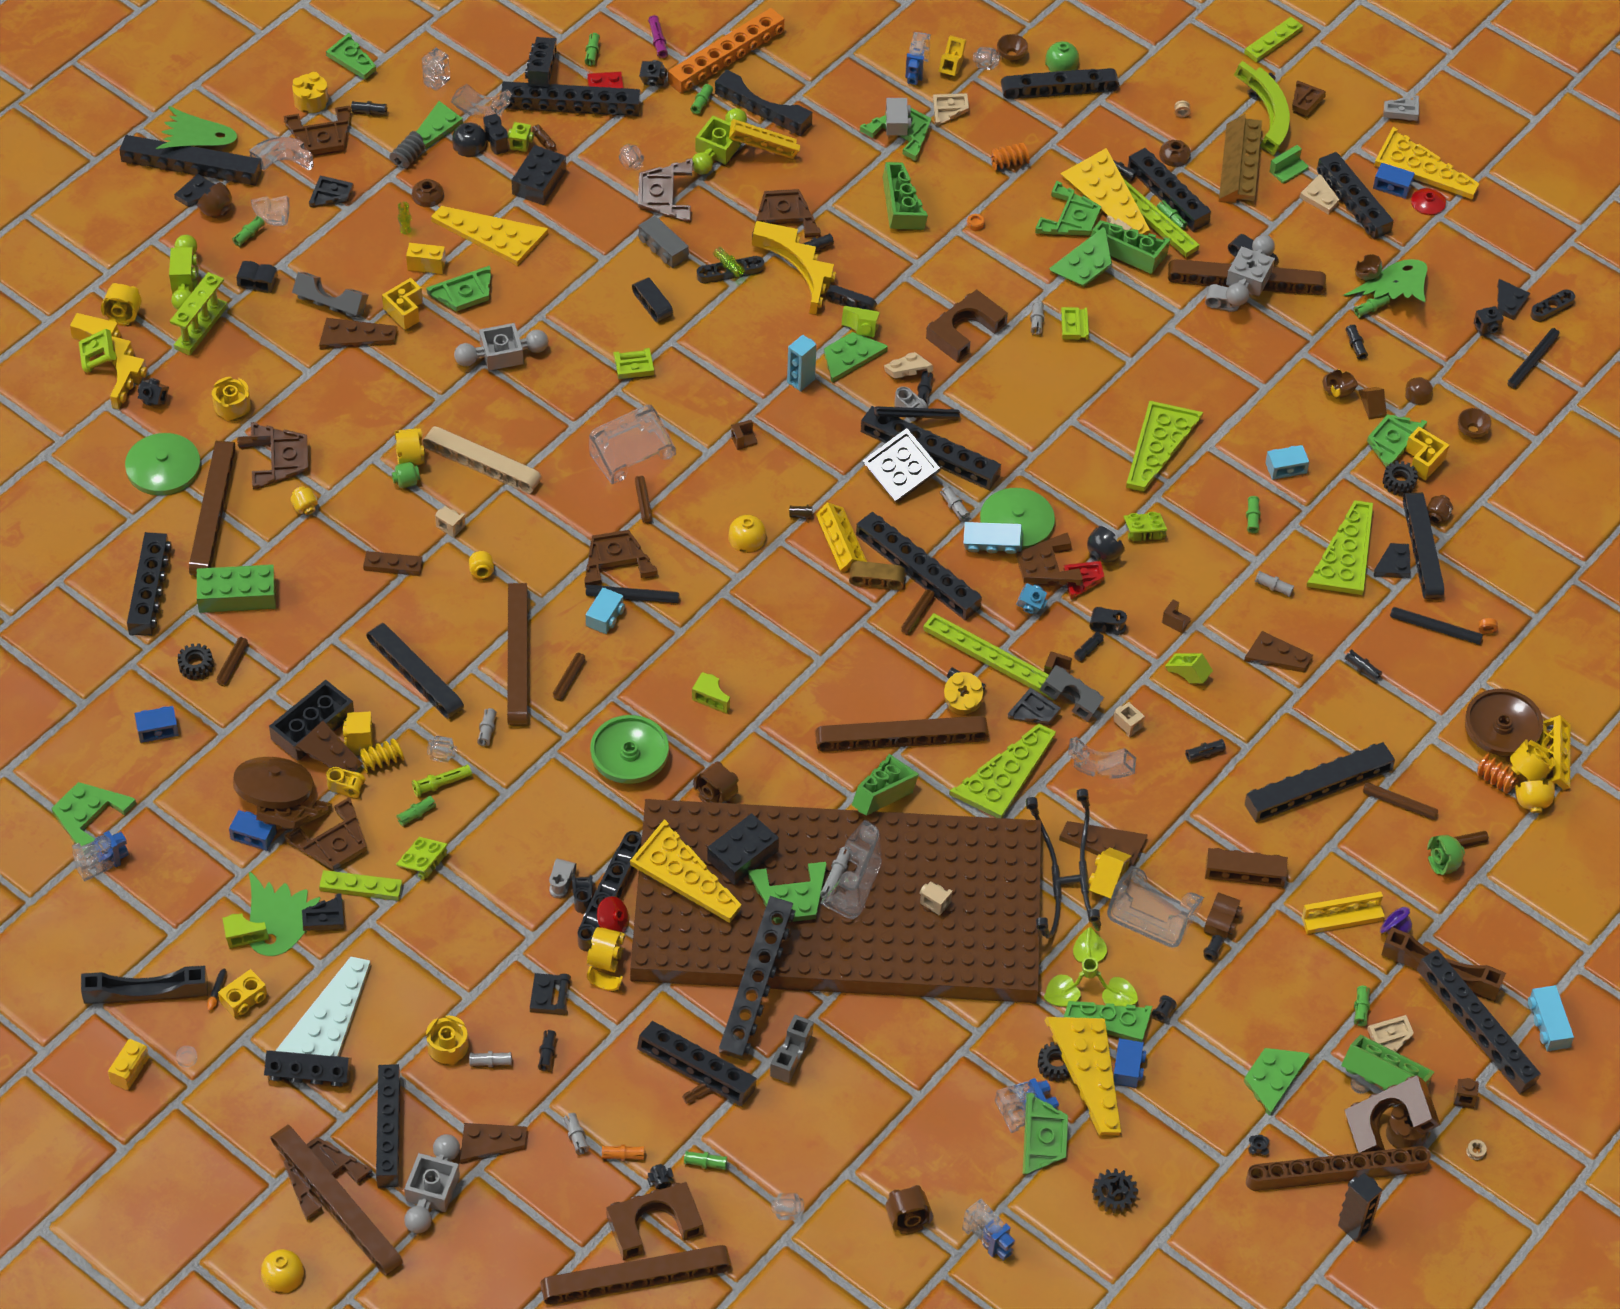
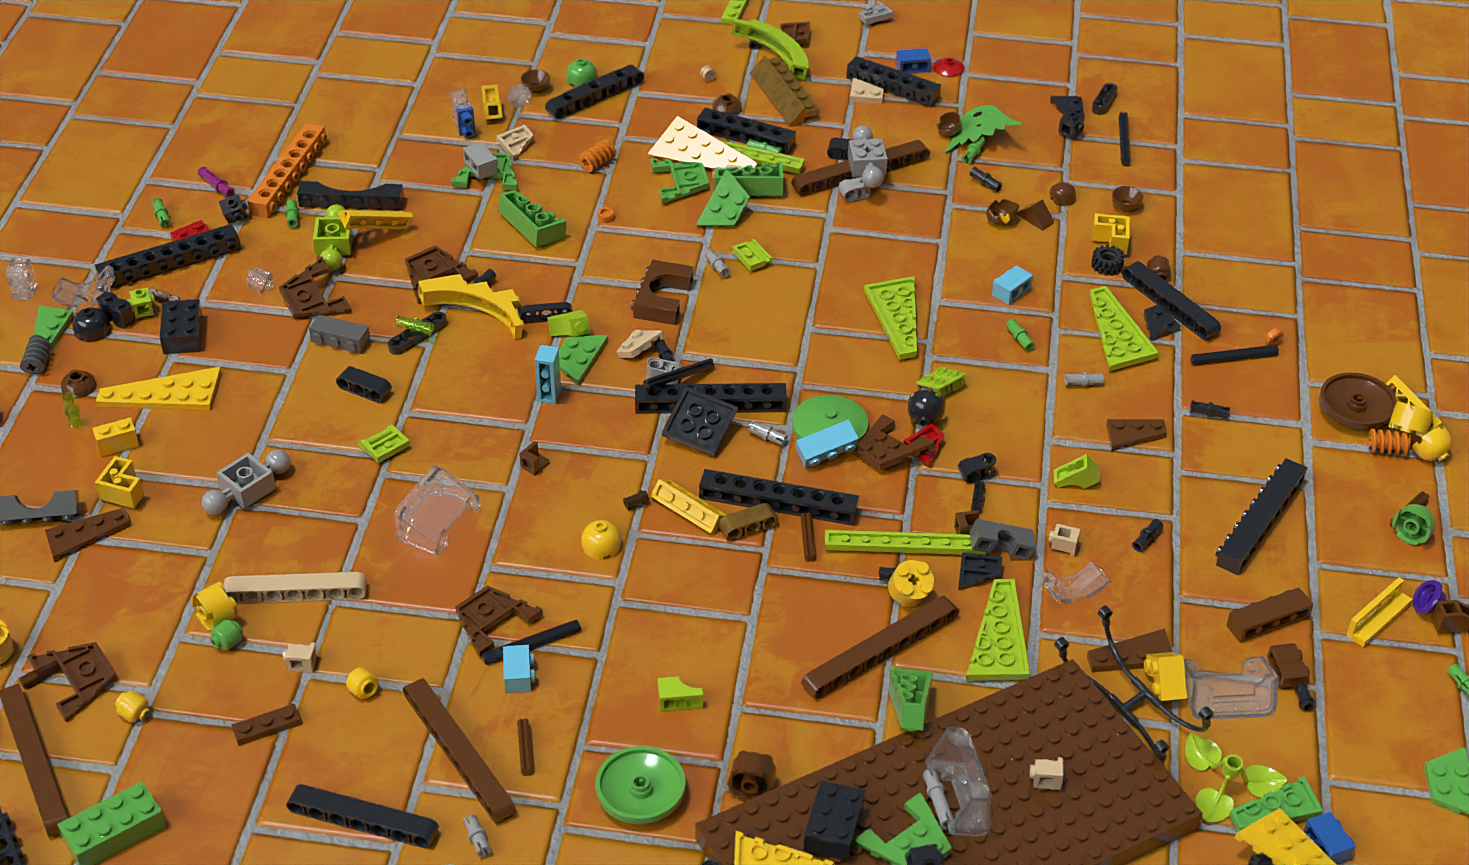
camera: 30 degrees left, 10 degrees down
(463, 290) = (171, 450): bright green wing -> none
(541, 61) = (121, 236): black brick -> none
(643, 499) = (479, 554): reddish brown axle -> none
(1032, 599) = (900, 478): dark azure brick -> none
(1164, 1008) = (1314, 773): black bush -> none
(1173, 618) = (1029, 443): reddish brown panel -> none
(1288, 165) = (822, 82): bright green panel -> none
(1391, 437) = (1075, 234): bright green wing -> none
(1401, 801) = (1335, 500): reddish brown axle -> none
(1426, 165) = (936, 45): yellow wing -> none

